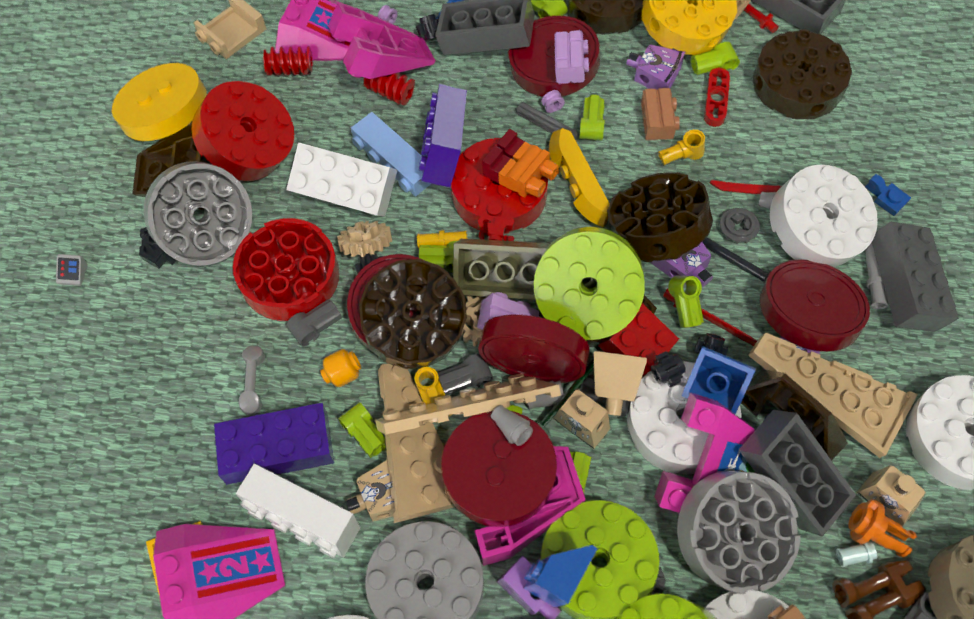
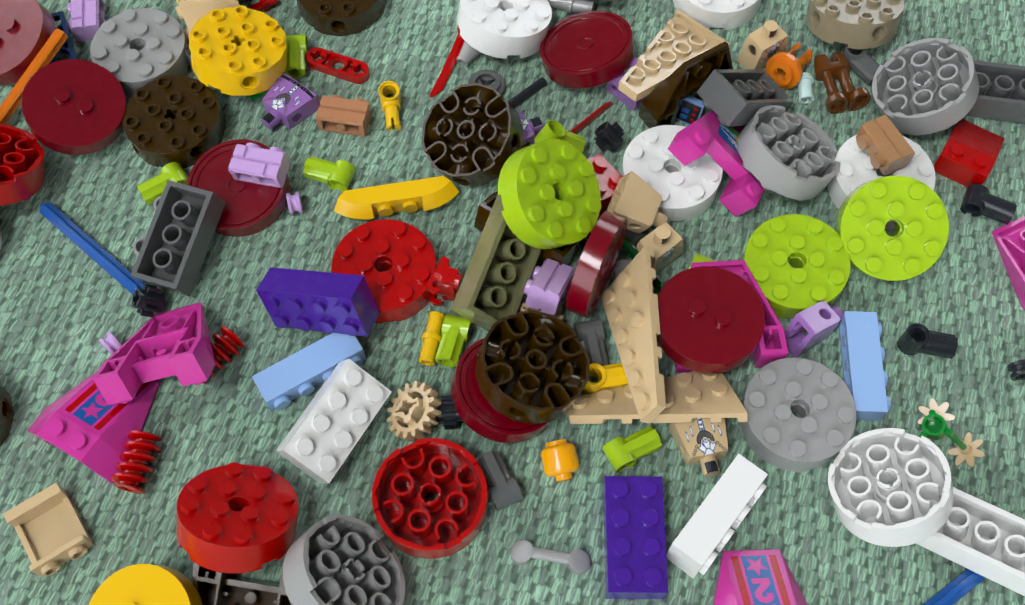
camera: 80 degrees left, 0 degrees up
(513, 426) = (679, 291): light grey cone -> none
(519, 165) = (384, 236): orange hips -> none
(541, 119) = (312, 218): dark grey axle -> none
(558, 575) = (823, 280): blue slope -> none
(668, 369) = (638, 161): black gear -> none
(719, 379) = (656, 128): blue slope -> none

